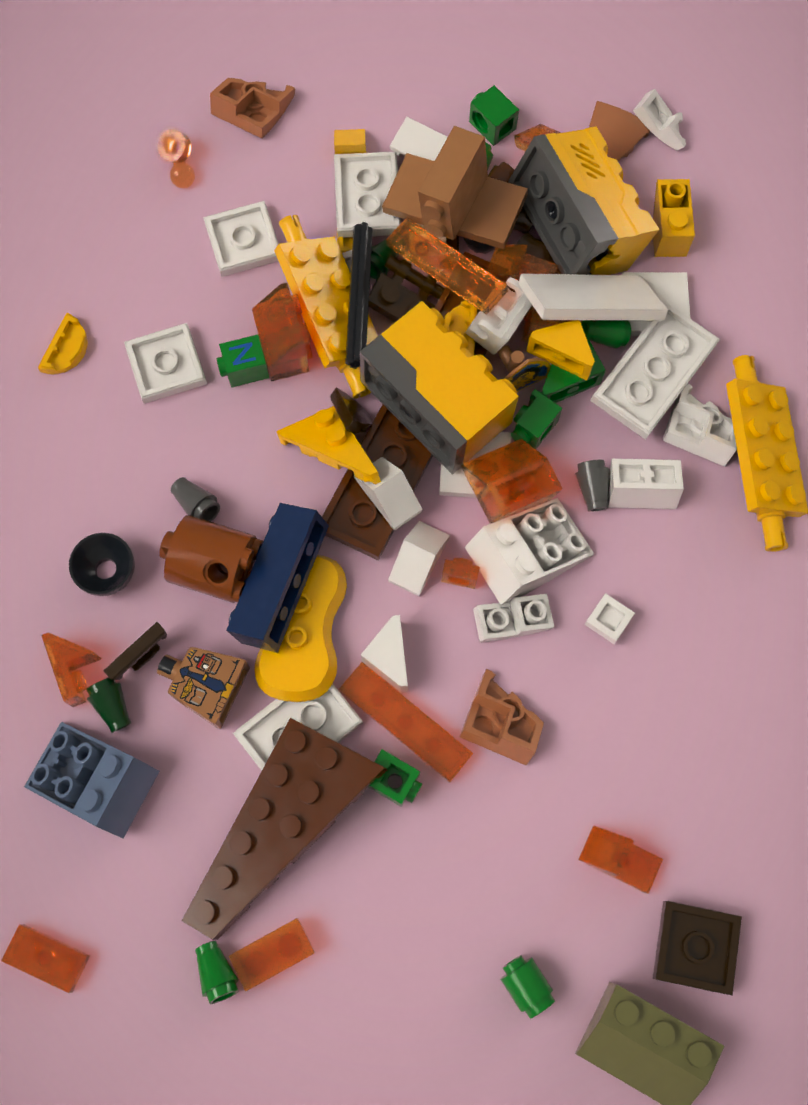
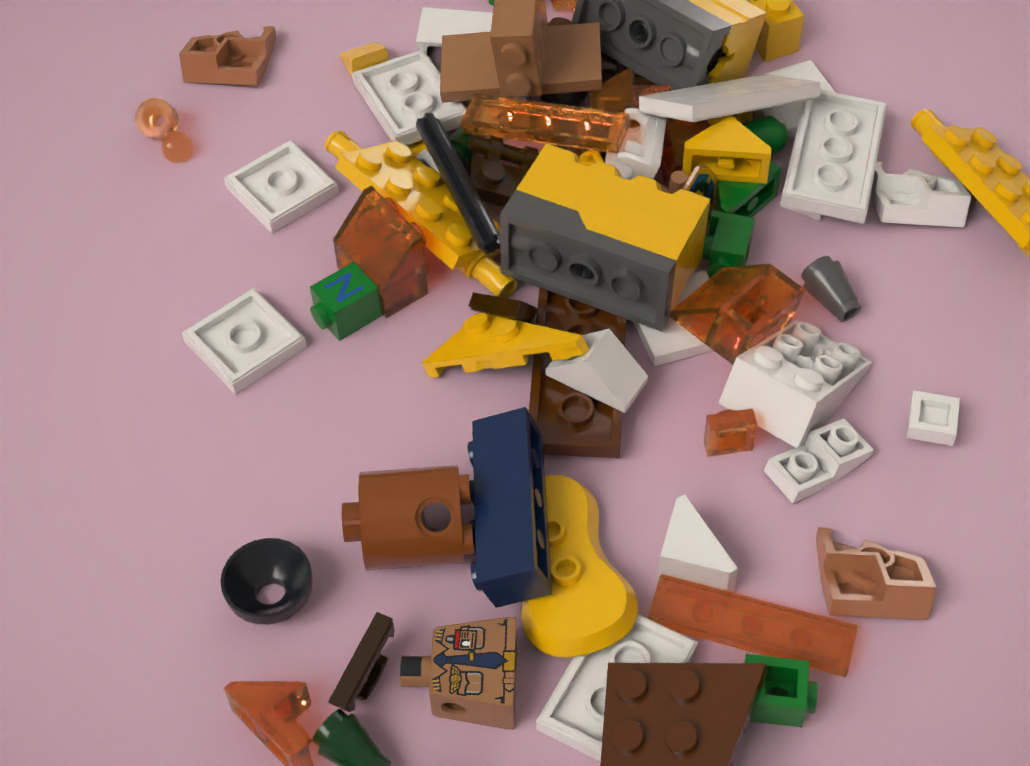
camera: 20 degrees left, 20 degrees down
(66, 347) = (107, 366): yellow tile -> none
(195, 500) = (345, 466): dark grey cone -> none
(418, 557) = (668, 440): white slope -> none
(645, 483) = (891, 266): white hinge -> none

